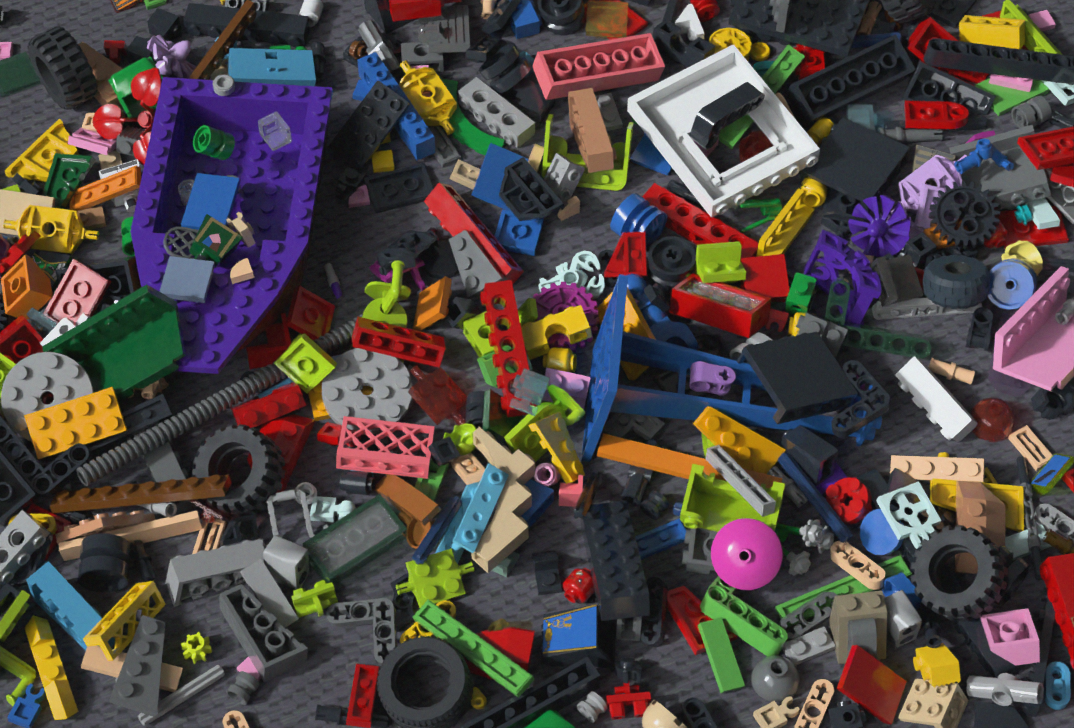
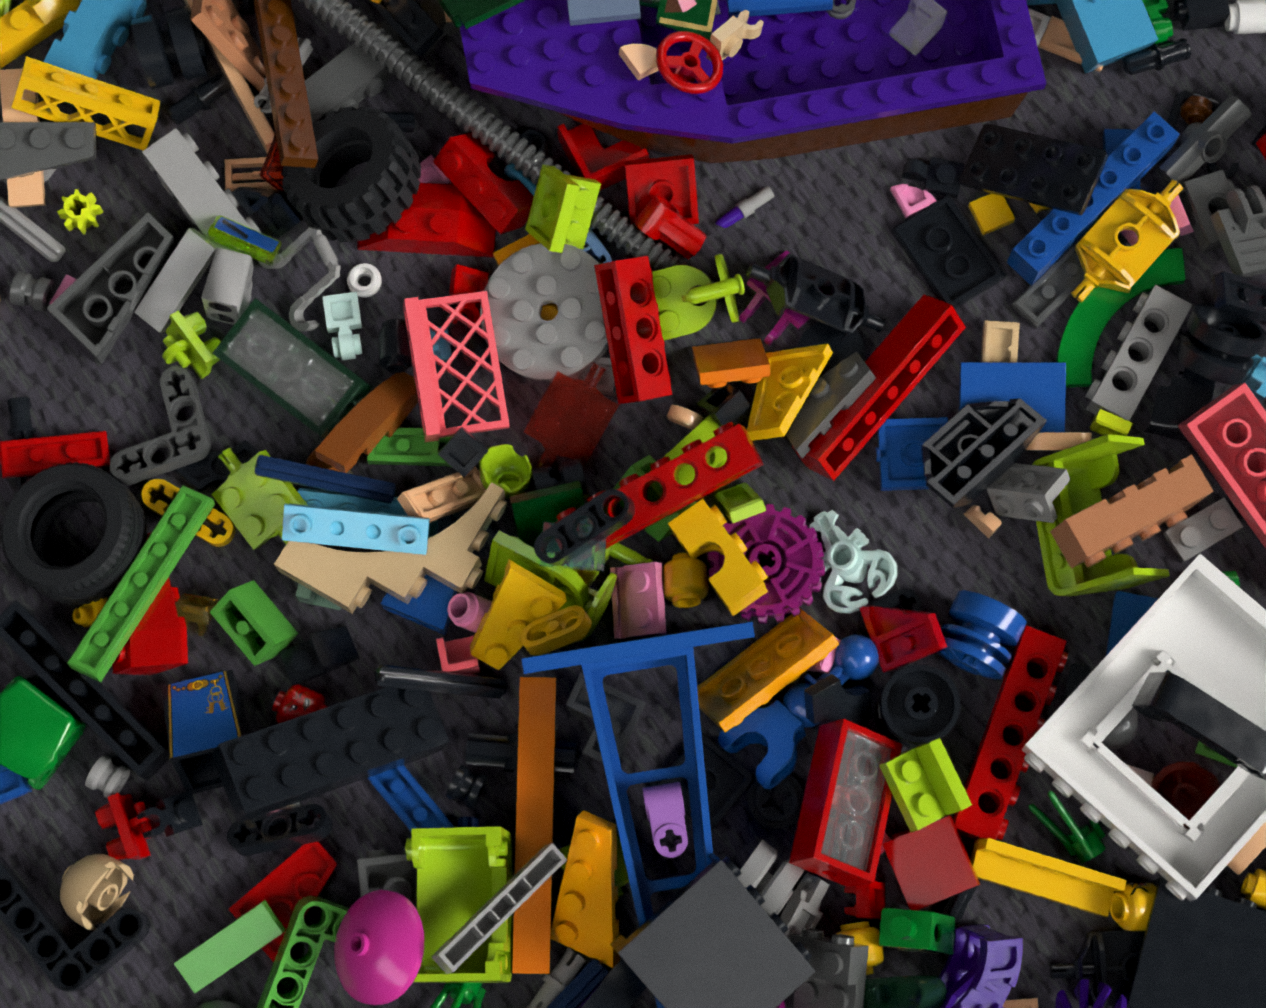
camera: 75 degrees right, 20 degrees up
(255, 250) = (685, 69): none -> red piece
(256, 547) = (244, 240): none -> slope
(332, 317) = (663, 222): none -> red piece
(457, 340) = (684, 417): none -> light nougat tile
(465, 281) = (785, 391): none -> yellow wing
(516, 597) = (253, 622): none -> bright green brick
(525, 361) = (566, 529): none -> black beam
(532, 135) = (1108, 423): none -> neon yellow tile
(577, 418) = (556, 630): none -> yellow plate

